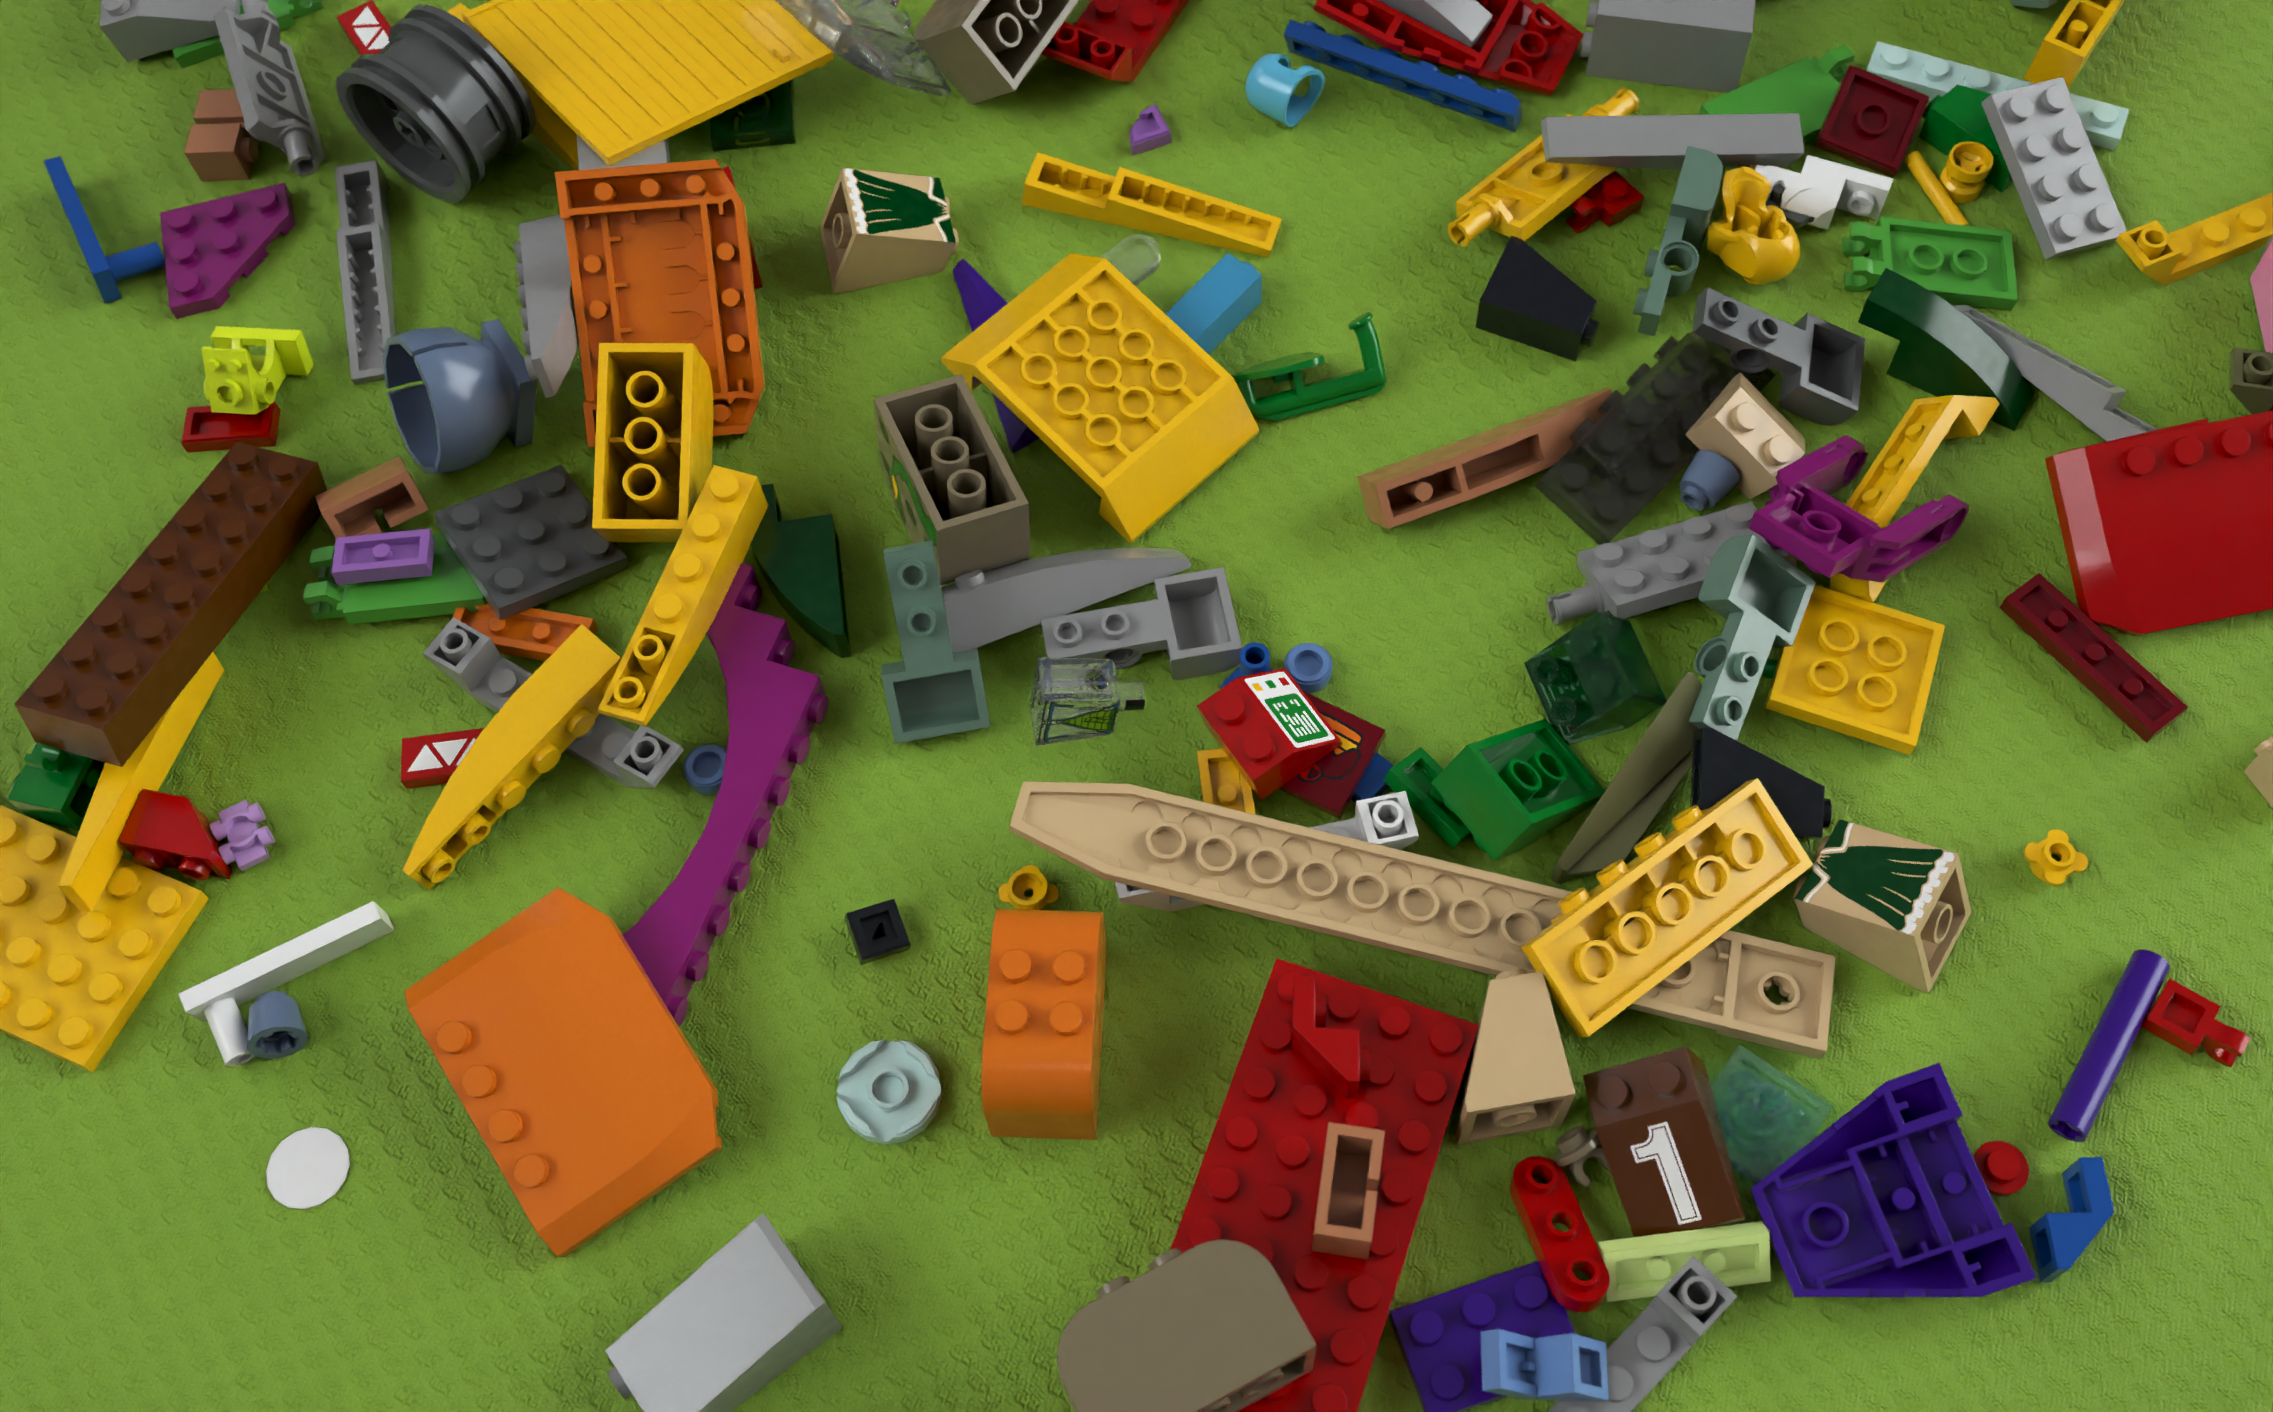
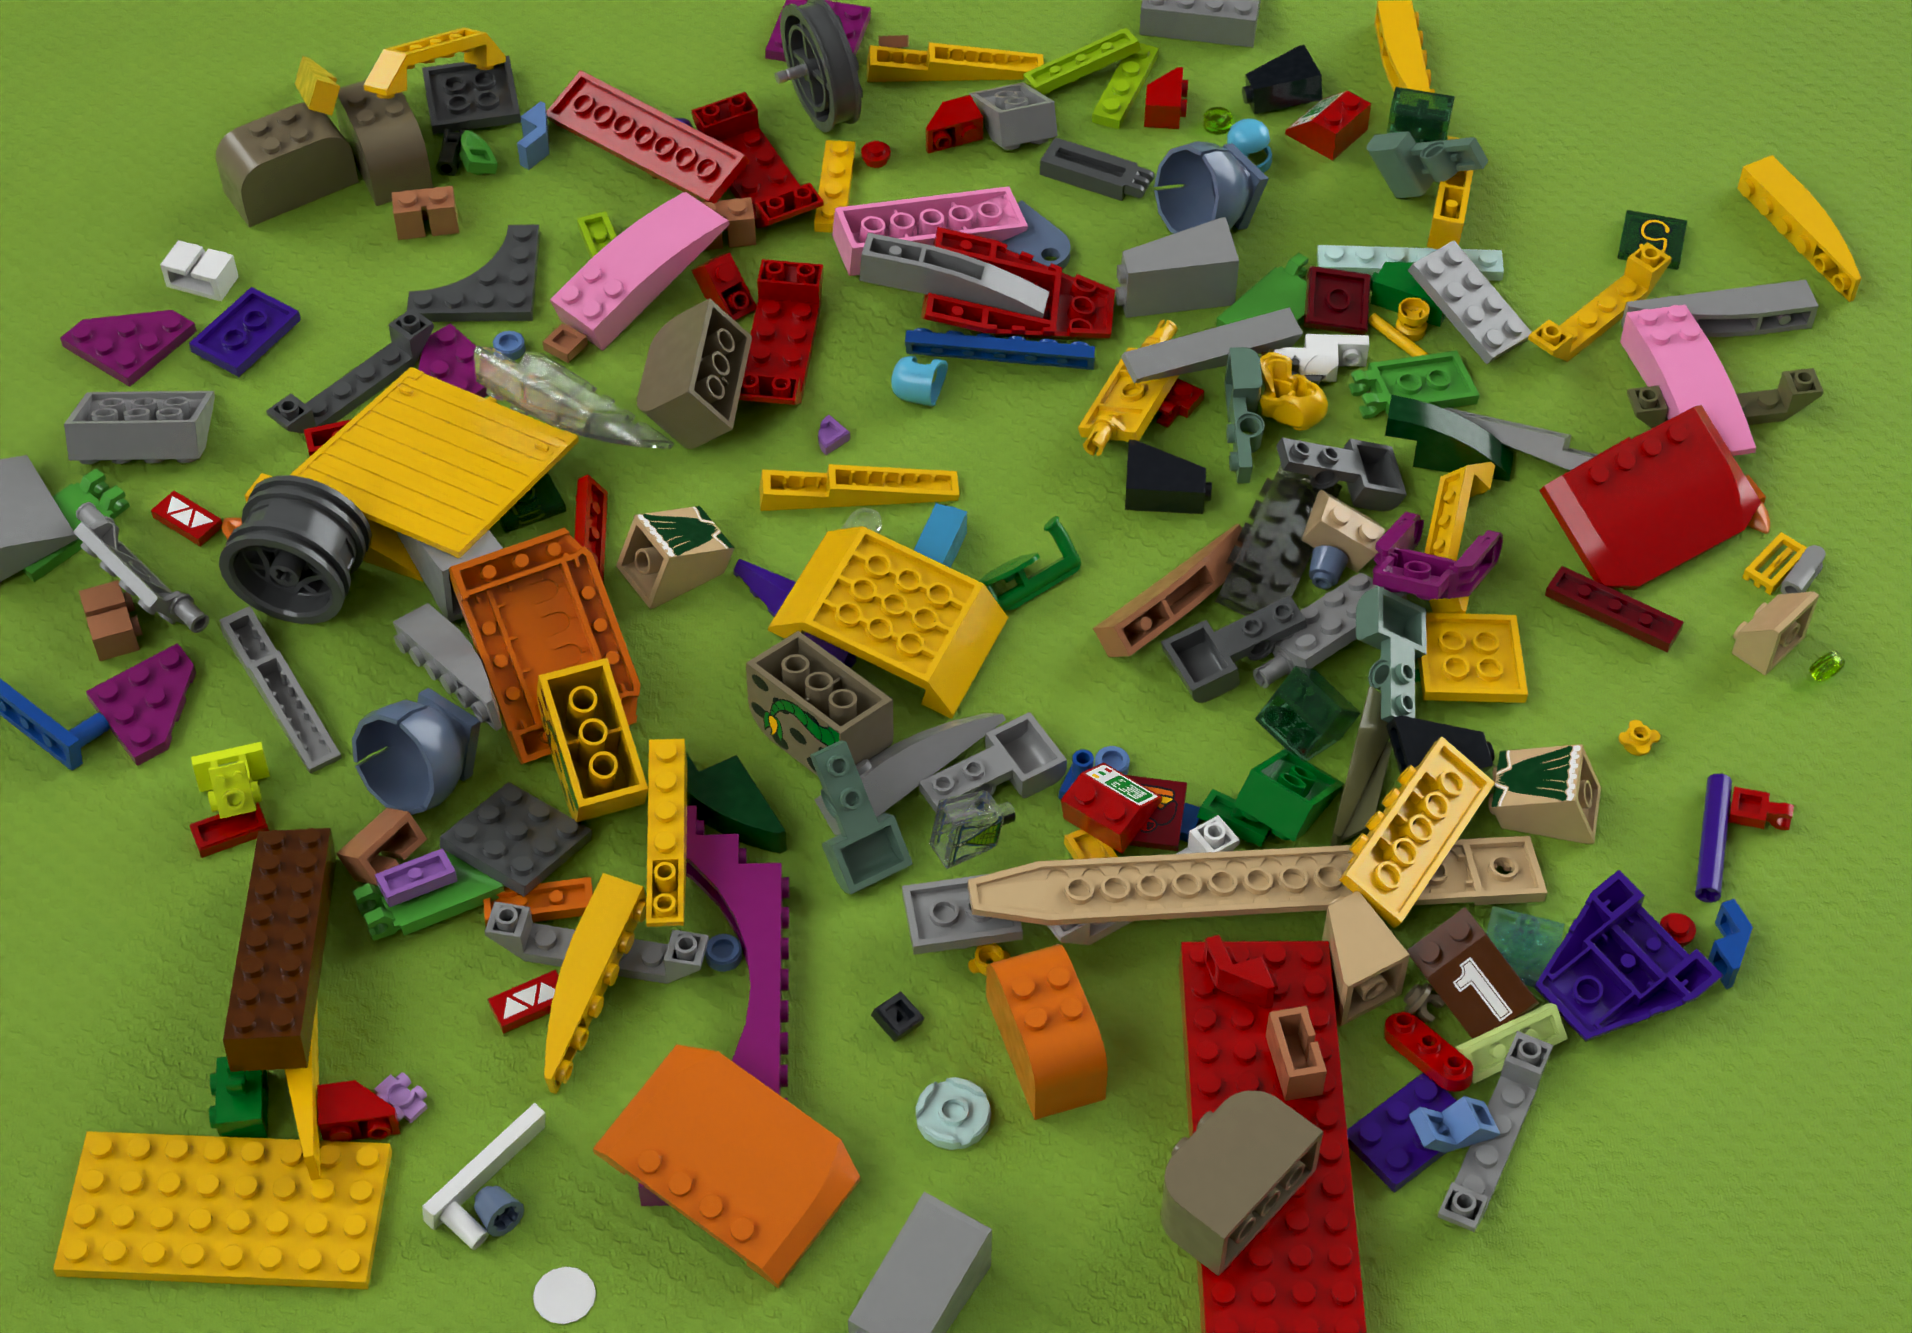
camera: 25 degrees left, 10 degrees down
(799, 181) = (591, 519): none -> red plate
(974, 820) = (943, 919): none -> light grey plate
(1489, 558) = (1208, 657): none -> dark grey plate

